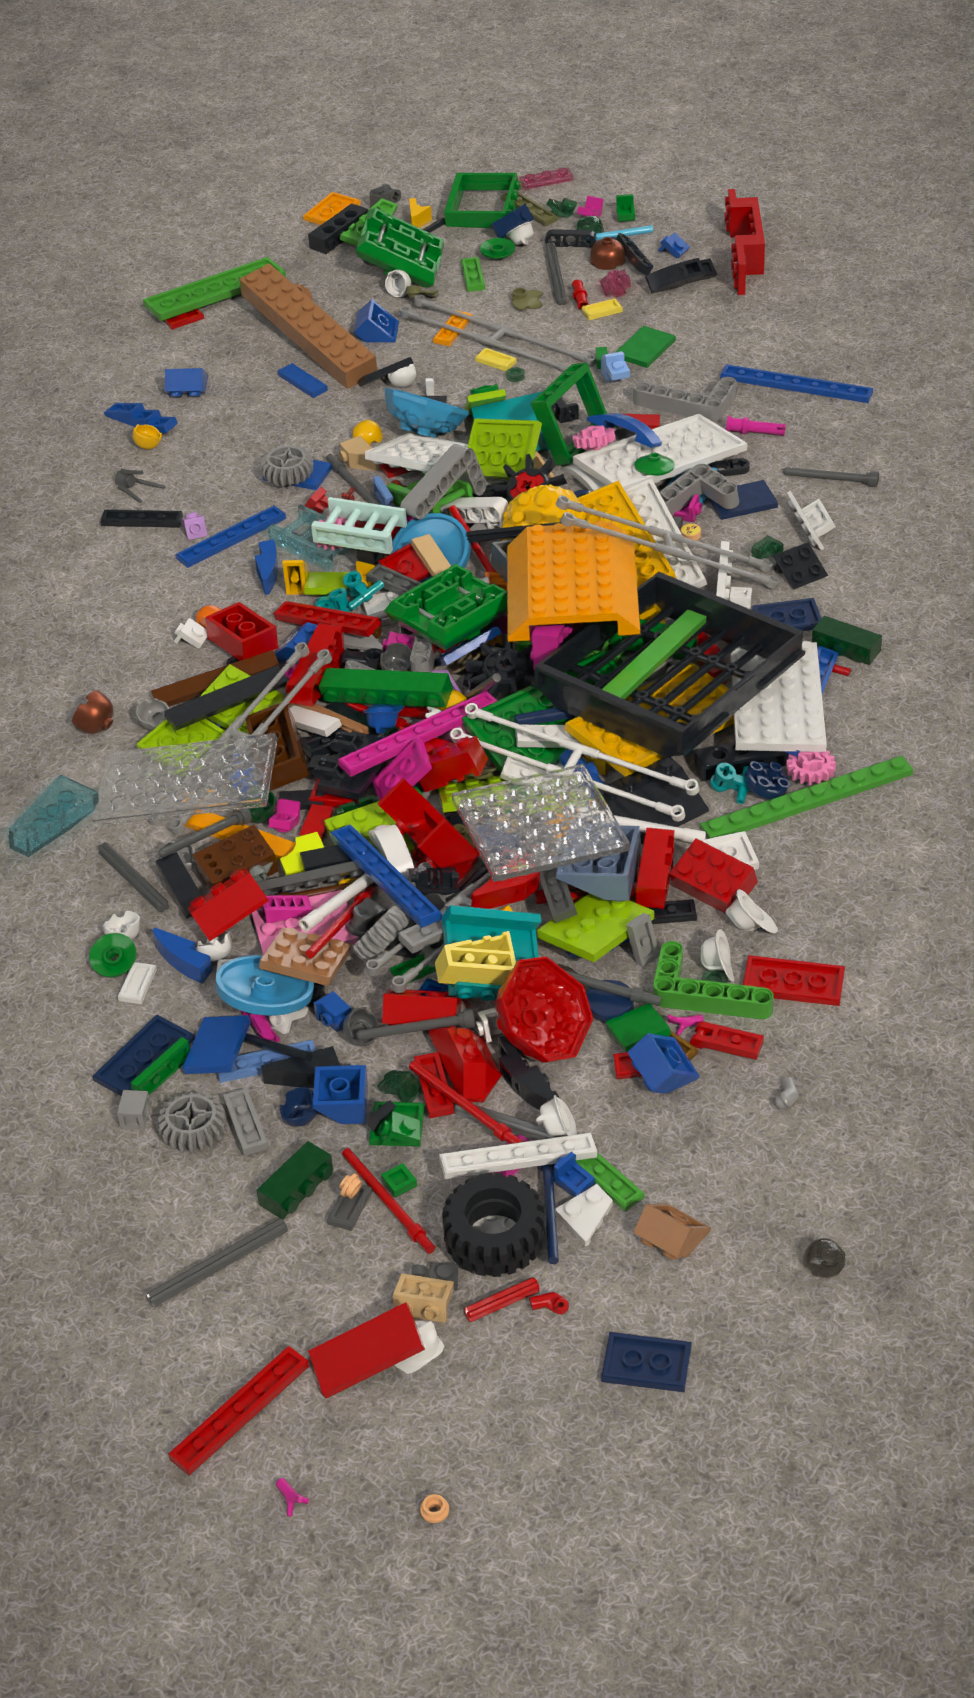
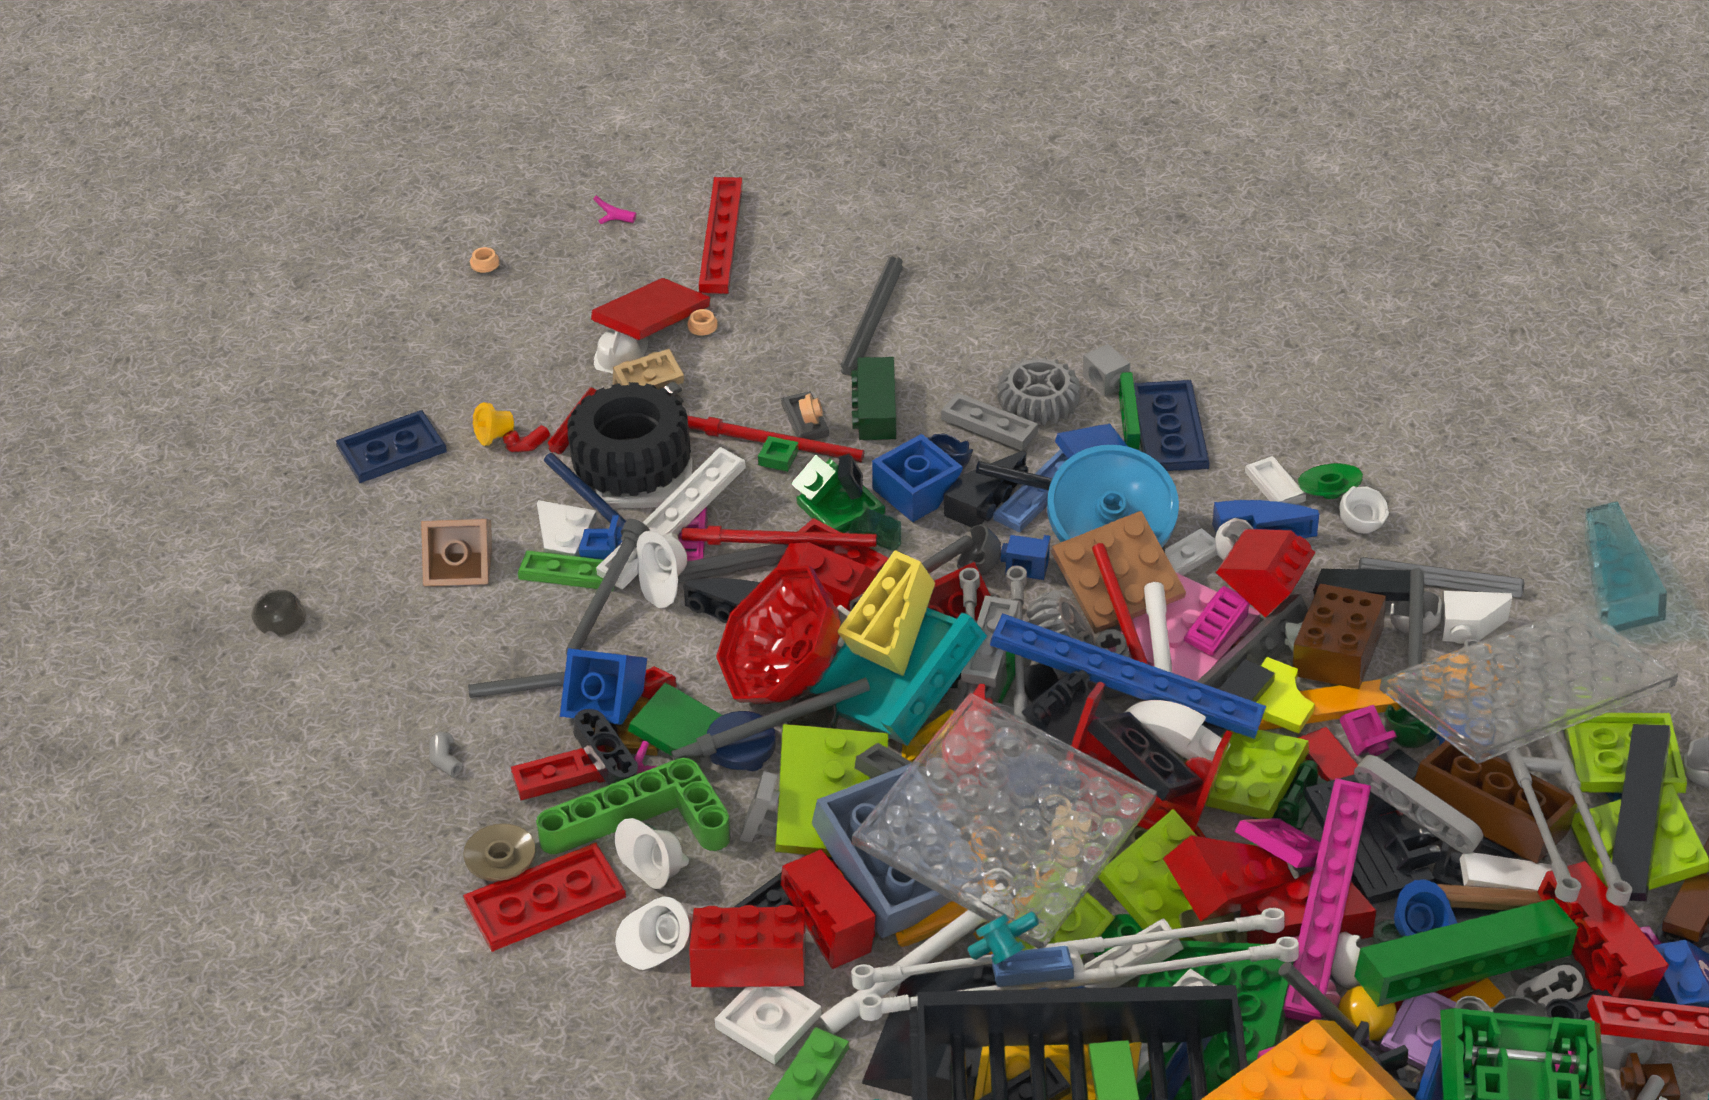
camera: 140 degrees right, 0 degrees up
(148, 839) = (1472, 614): none -> white slope
(327, 742) = (1419, 804): none -> light grey beam
(335, 1324) = (702, 322): none -> light nougat plate
(424, 821) = (1145, 755): none -> black tile
(561, 1139) = (630, 533): none -> dark grey piece
(565, 1321) = (491, 423): none -> yellow piece
(599, 756) = (1034, 967): none -> medium blue tile
(600, 772) = (1001, 937): none -> teal piece
(694, 1112) = (516, 684): none -> dark grey bar
(699, 1033) = (604, 735): none -> black beam
(802, 1008) = (502, 841): none -> dark tan dish

